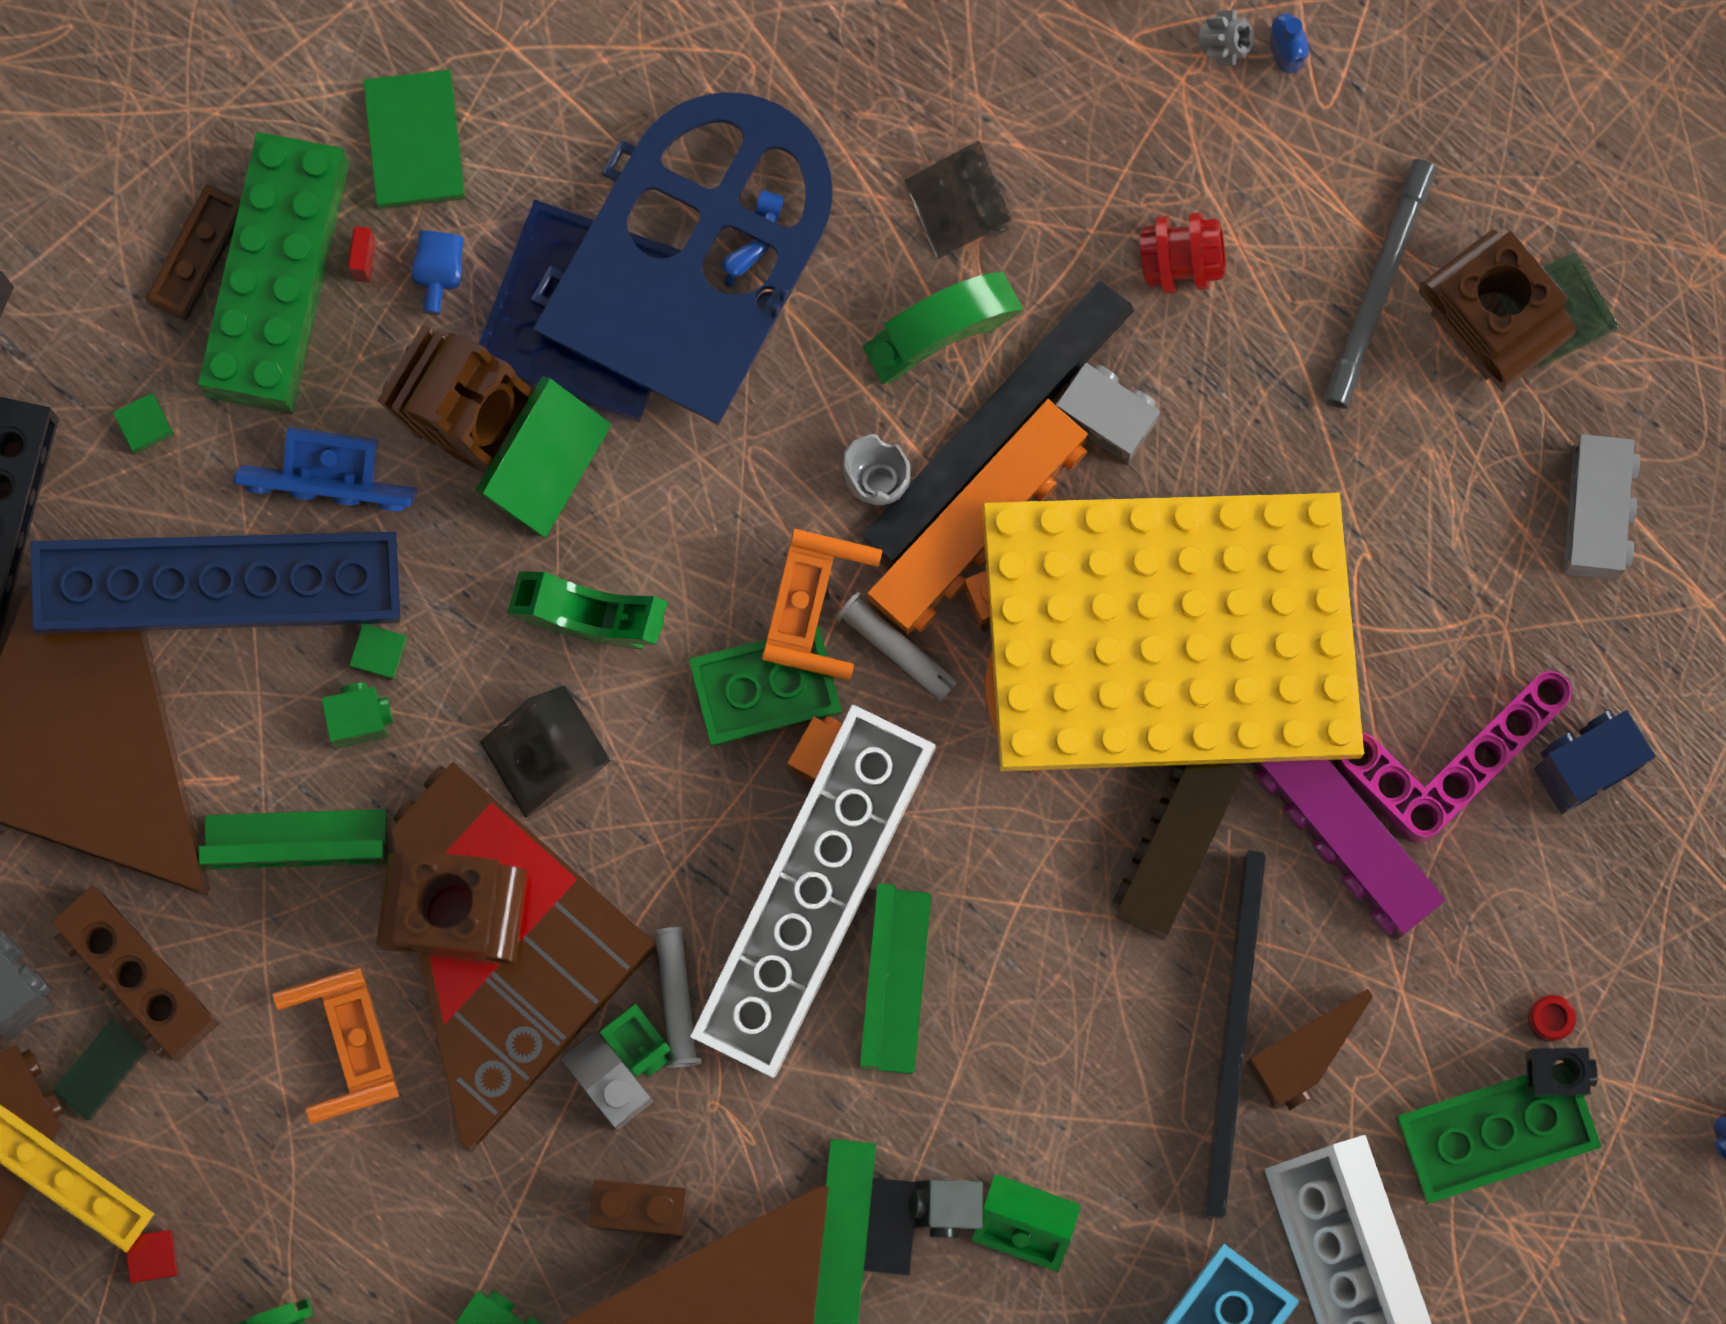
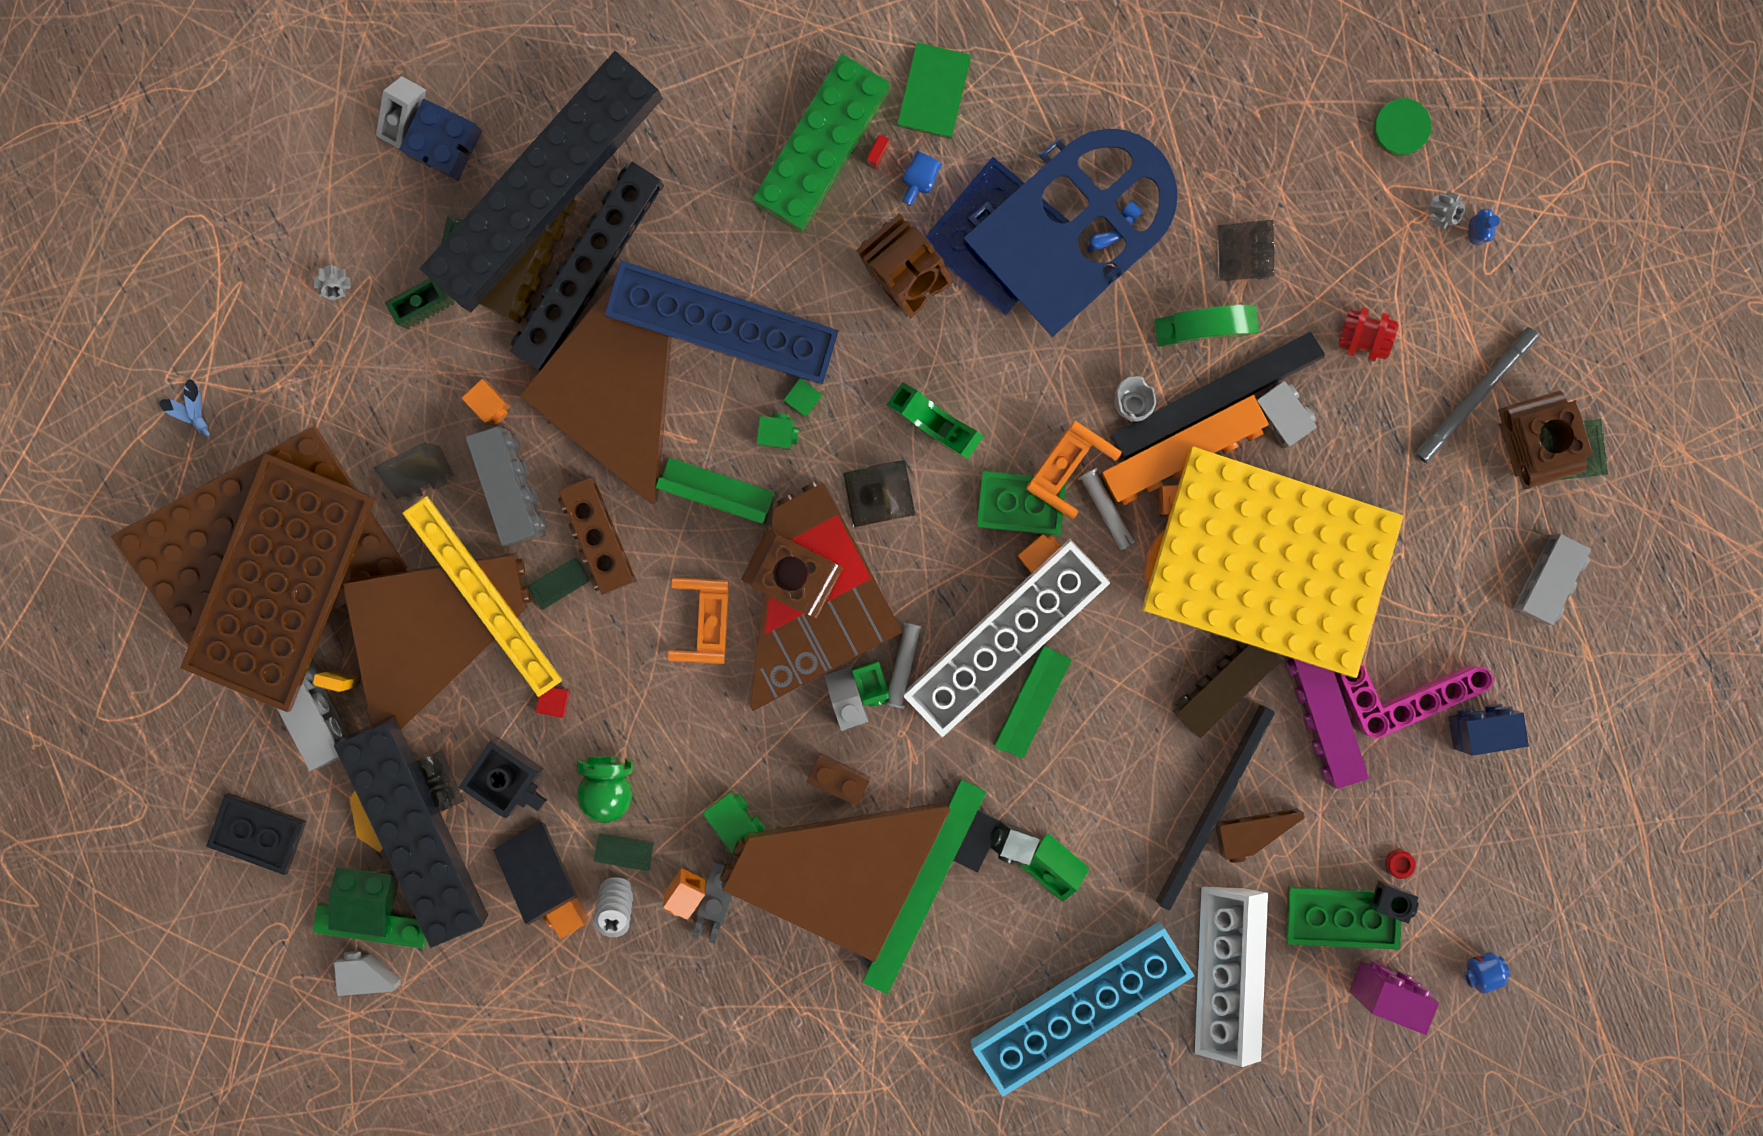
camera: 20 degrees right, 10 degrees up
(143, 423) = (712, 207): green tile -> none
(195, 253) = (779, 113): reddish brown tile -> none
(329, 467) = (811, 276): blue bracket -> none
(543, 457) = (941, 318): green tile -> none
(1615, 1216) = (1394, 996): none -> magenta brick

